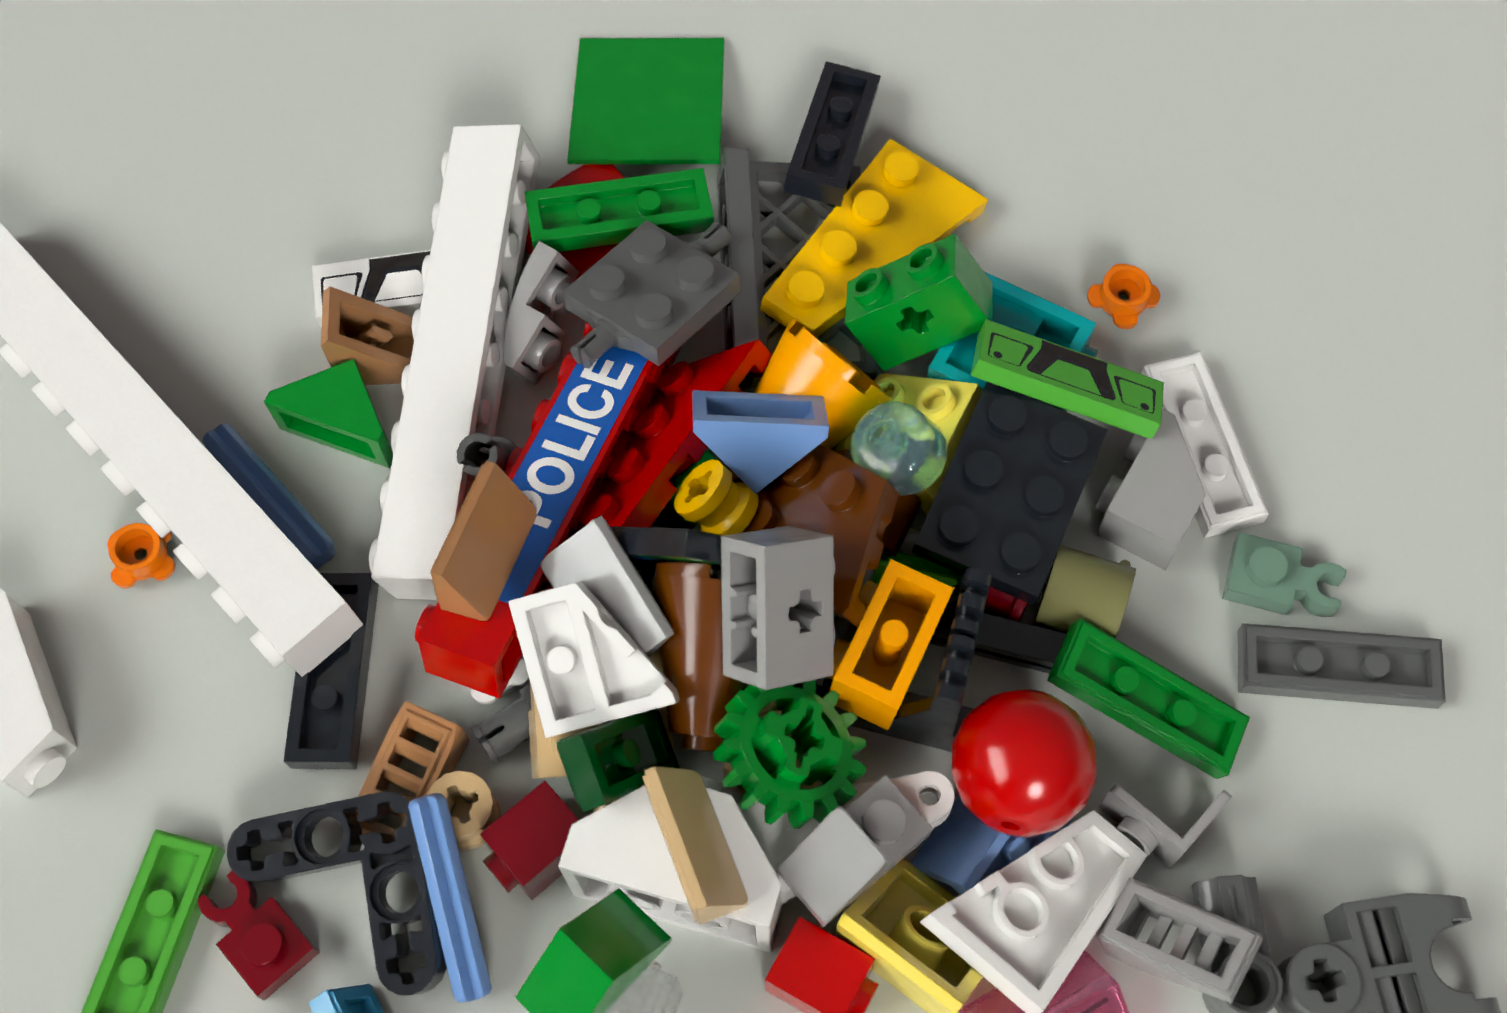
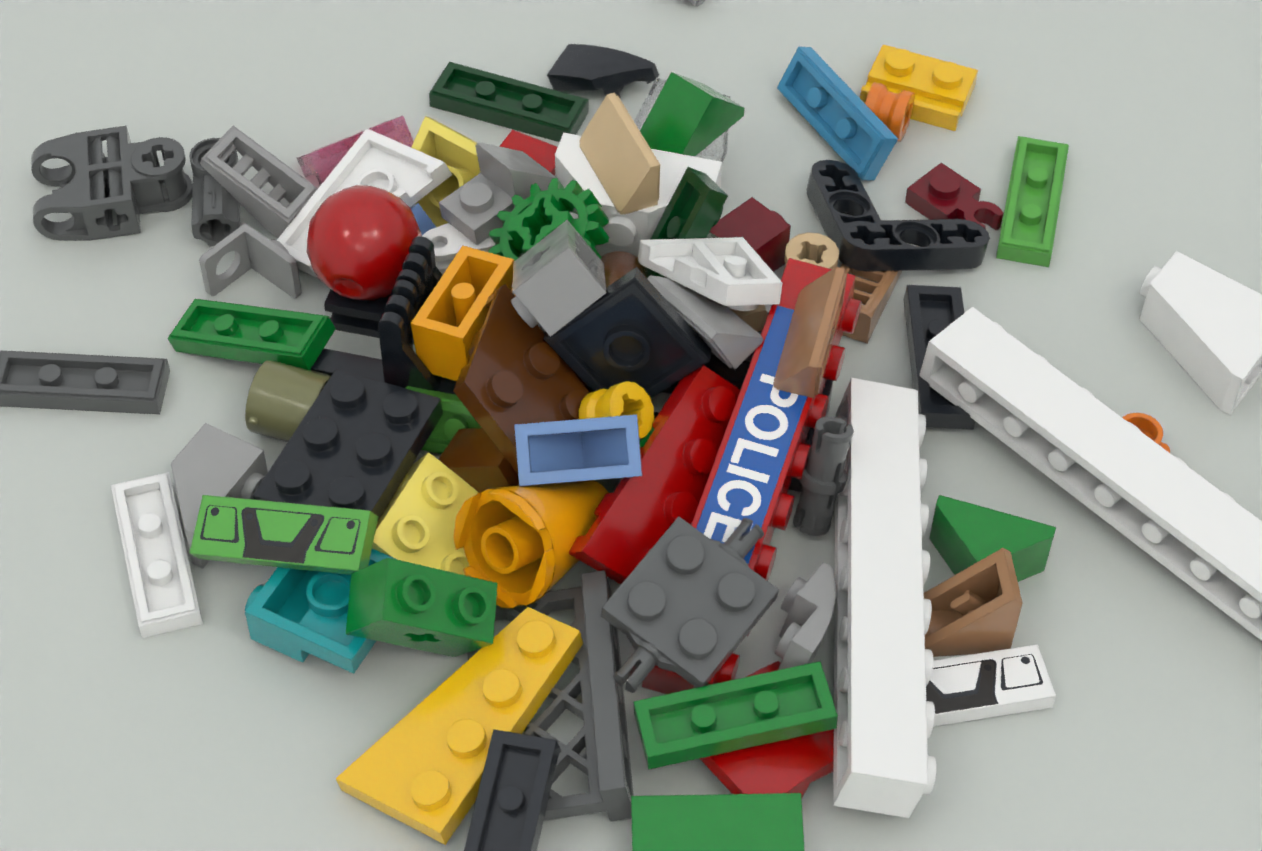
camera: 175 degrees right, 15 degrees down
(269, 494) = (1037, 490): medium blue axle -> none
(450, 897) = (809, 202): medium blue axle -> none
(900, 446) = (450, 444): clear light blue head -> none
(1129, 281) = (204, 670): orange plate -> none
(1271, 577) = (118, 448): sand green plate -> none

